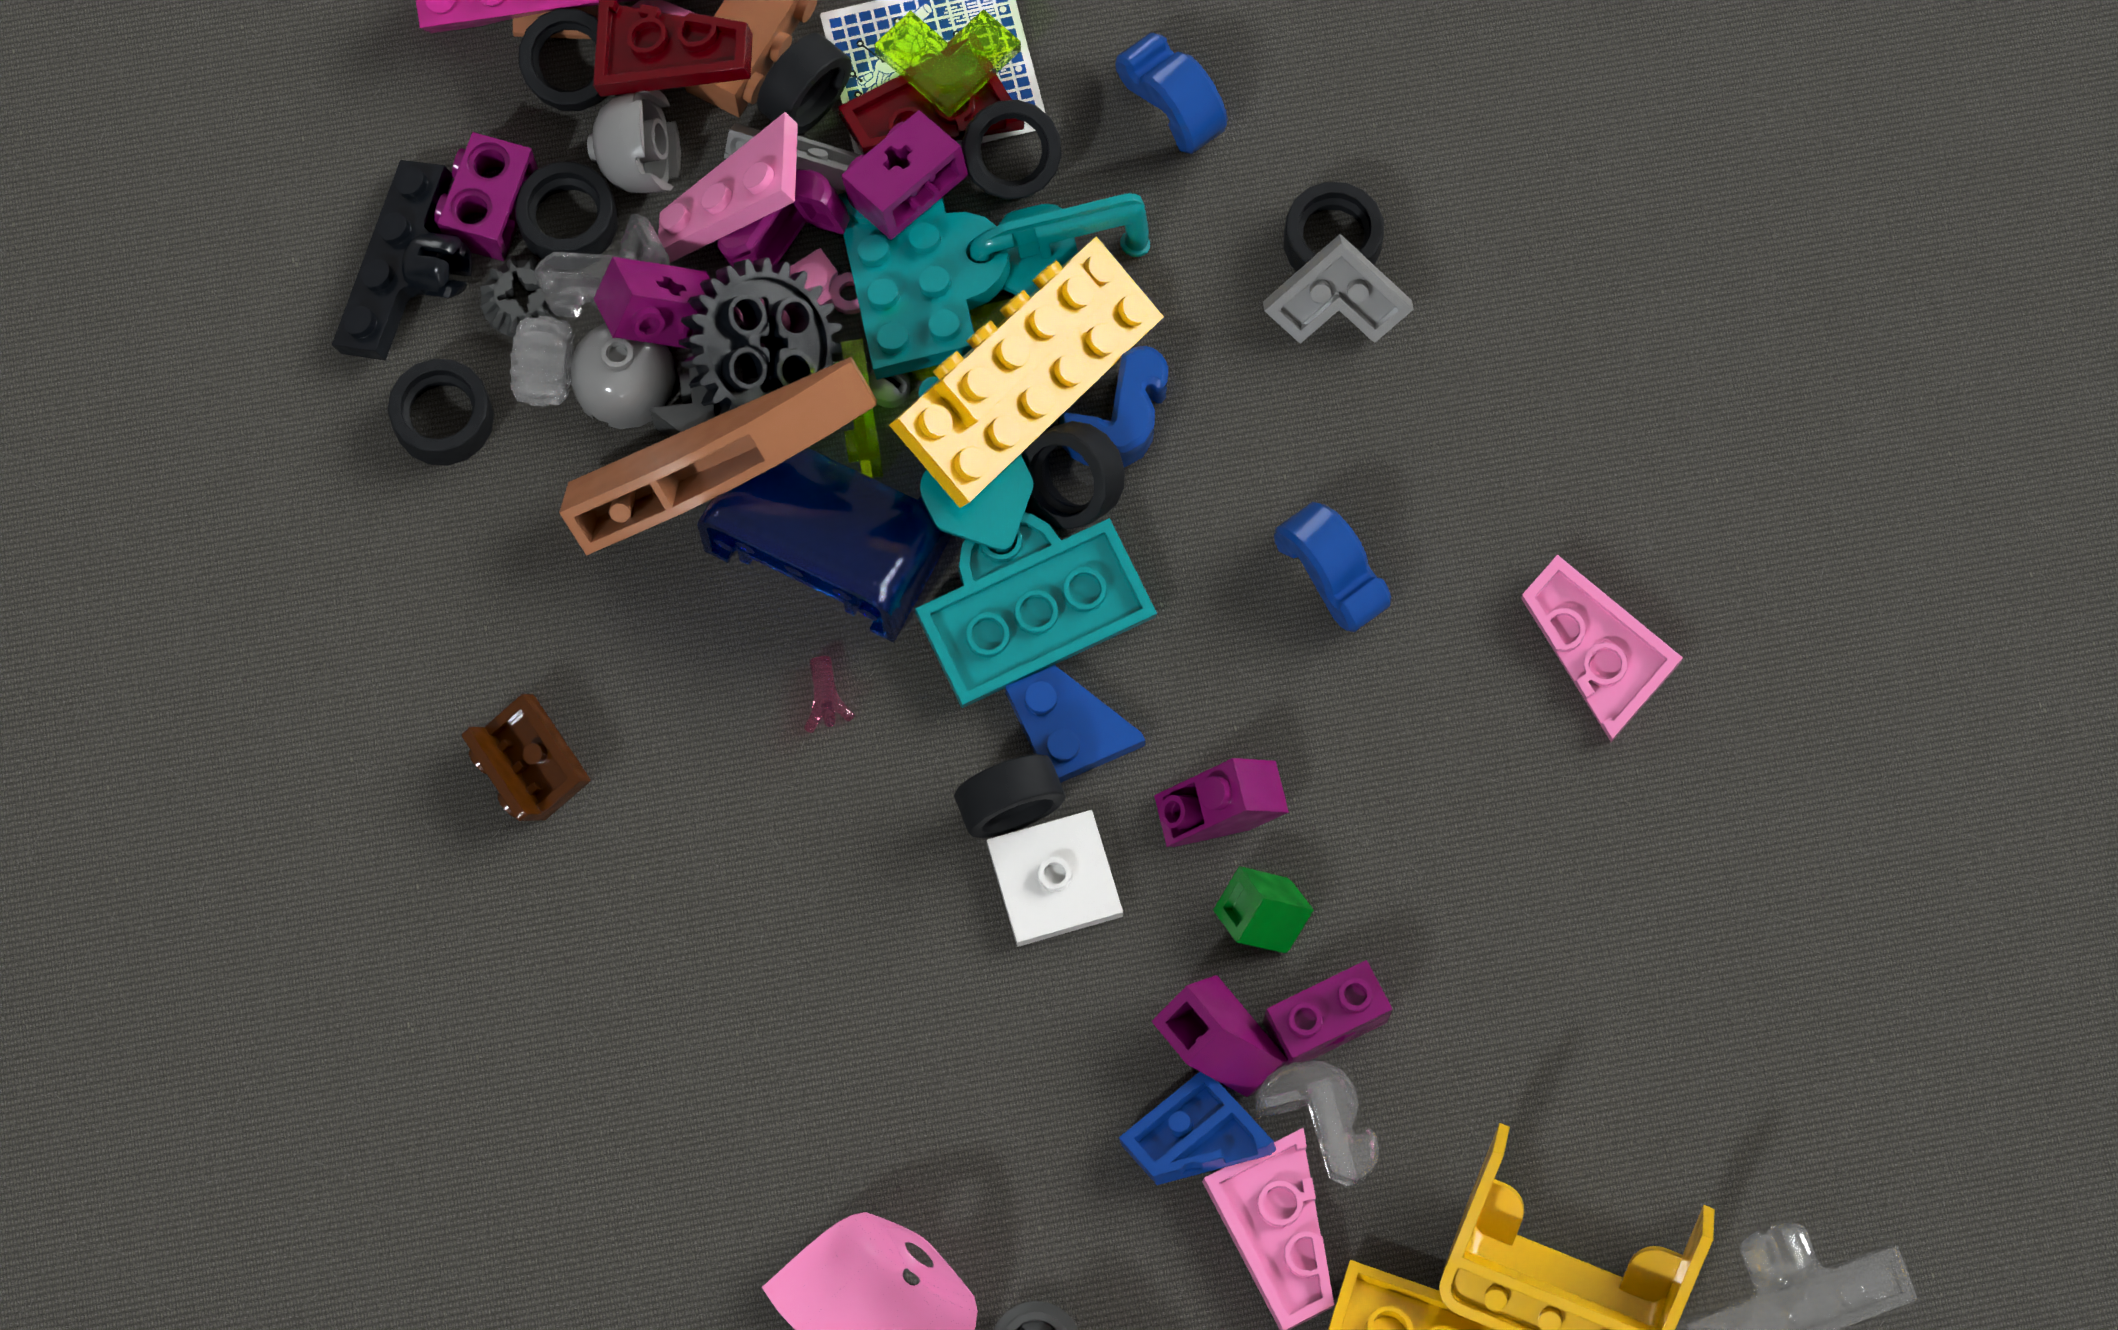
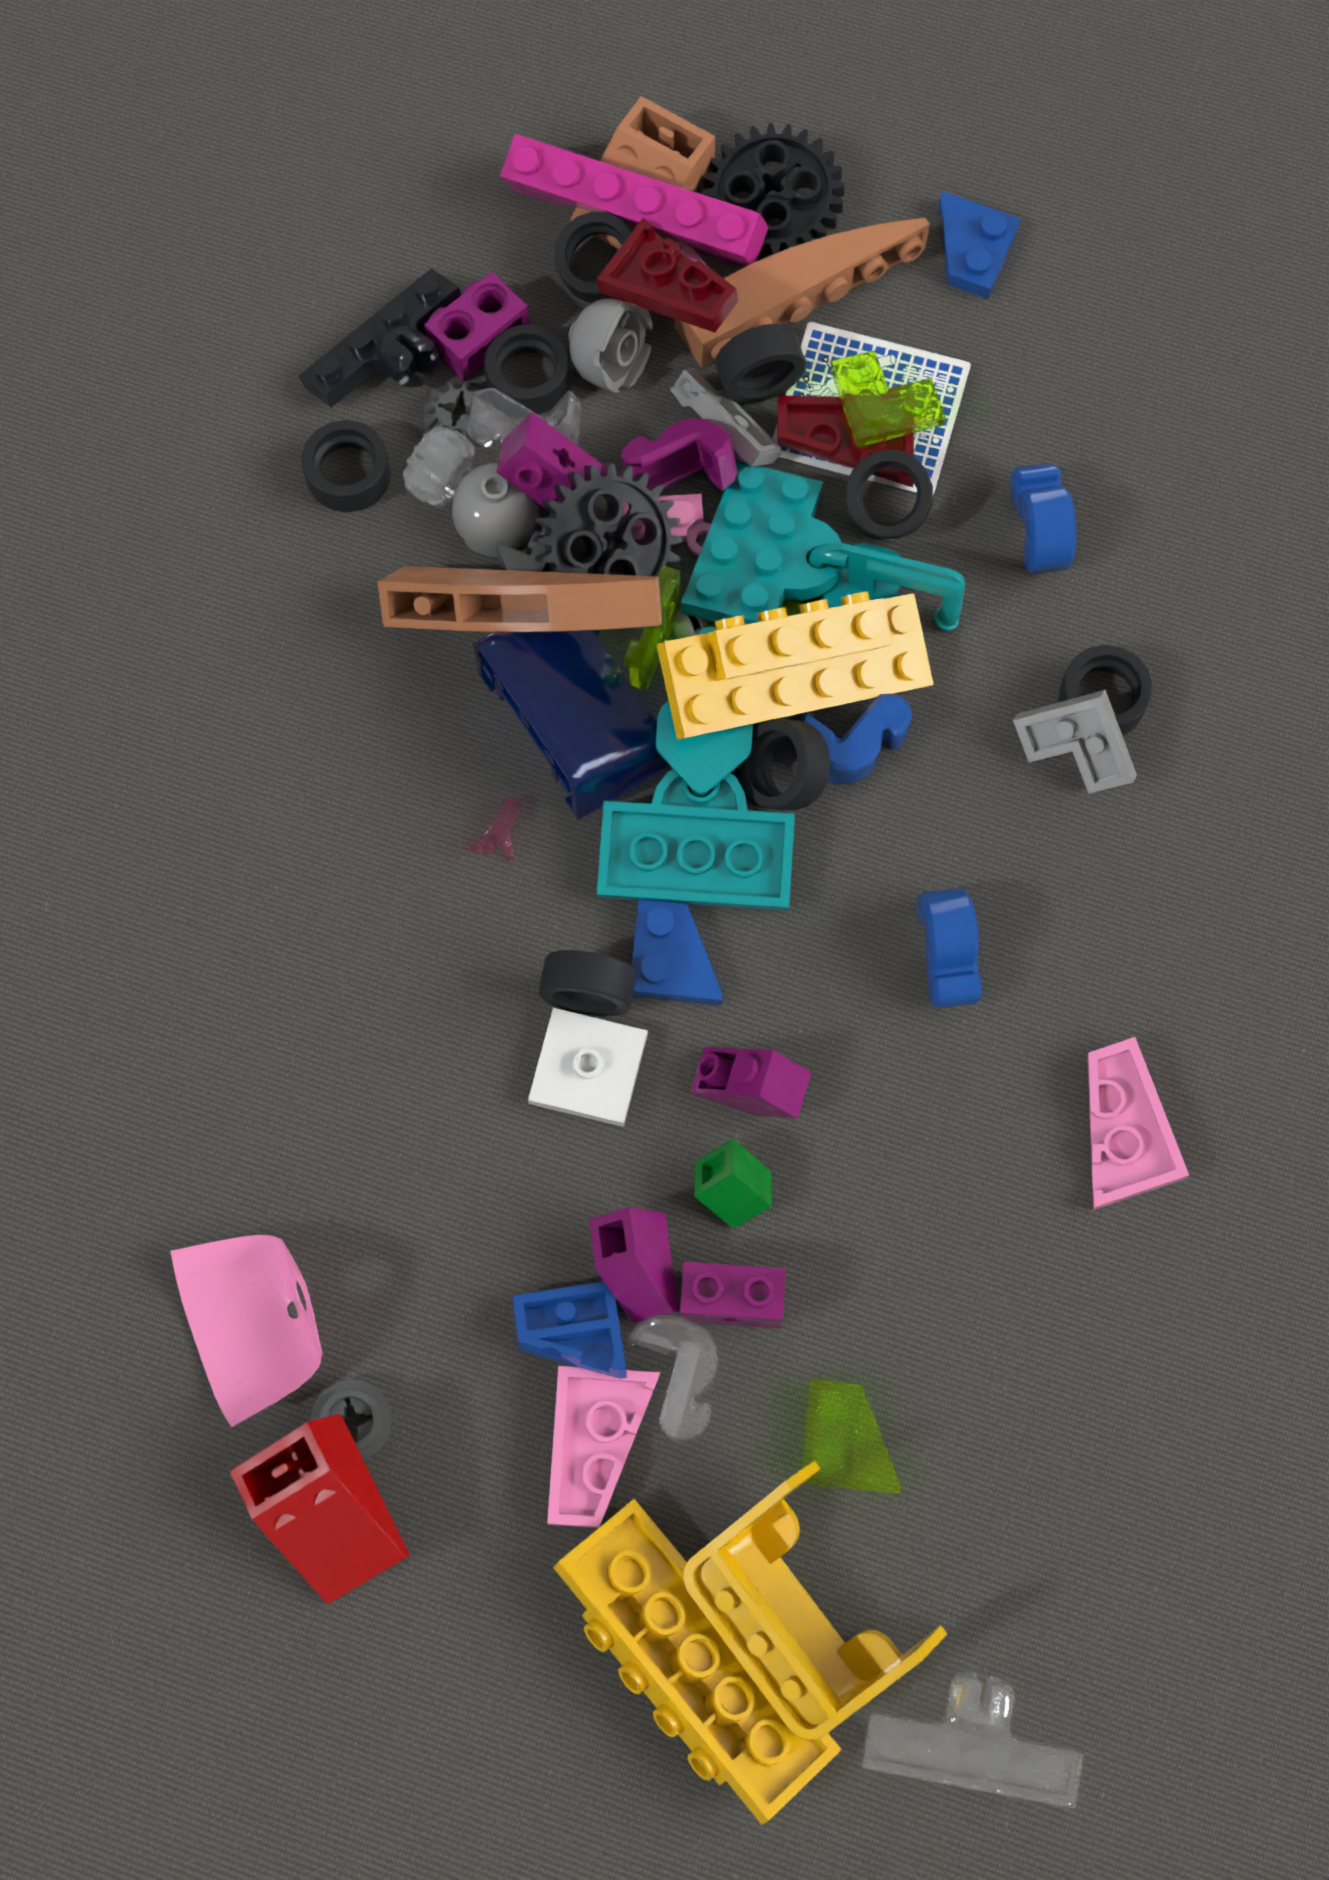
camera: 30 degrees right, 0 degrees up
(526, 760) = (246, 755): reddish brown bracket -> none
(736, 192) = (658, 416): bright pink wing -> none
(904, 174) = (793, 468): magenta brick -> none
(1511, 1089) = (845, 1440): none -> clear neon green wing

